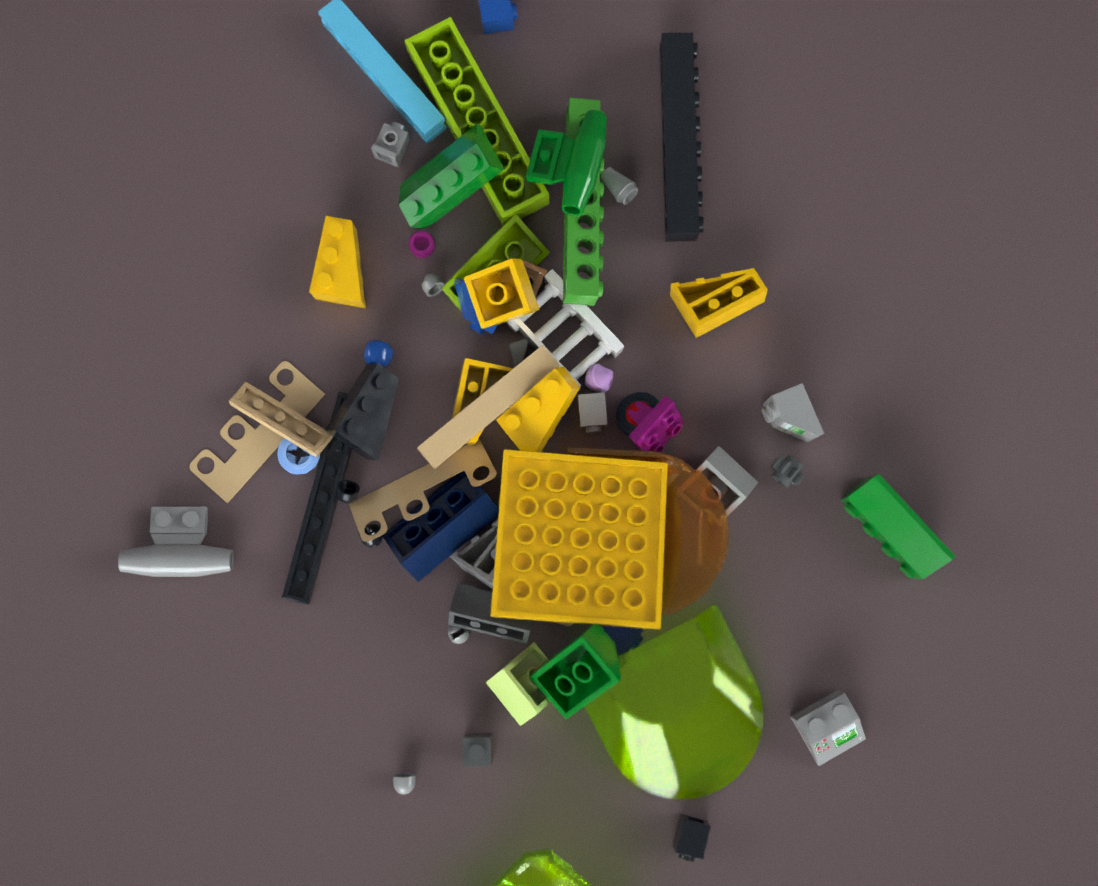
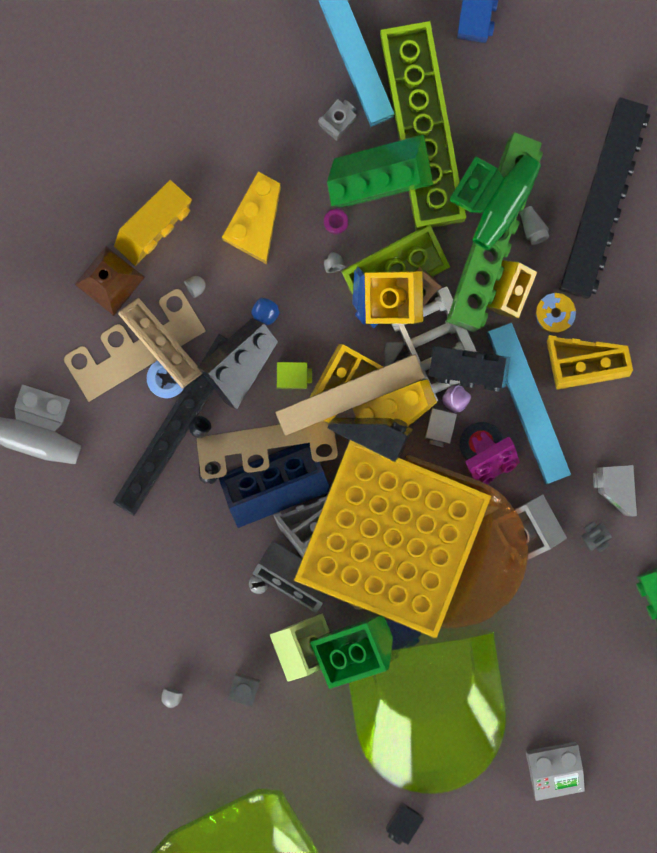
camera: 15 degrees right, 5 degrees up
(211, 374) = (117, 287): none -> reddish brown slope
(235, 302) = (152, 222): none -> yellow wedge
(299, 351) = (195, 285): none -> light grey hinge
(426, 408) = (293, 375): none -> lime brick
(533, 436) = (380, 435): none -> black slope
(601, 340) = (469, 368): none -> black wedge
(618, 251) = (512, 289): none -> yellow brick
(673, 360) = (529, 405): none -> medium azure piece
(677, 255) = (555, 301): none -> yellow piece

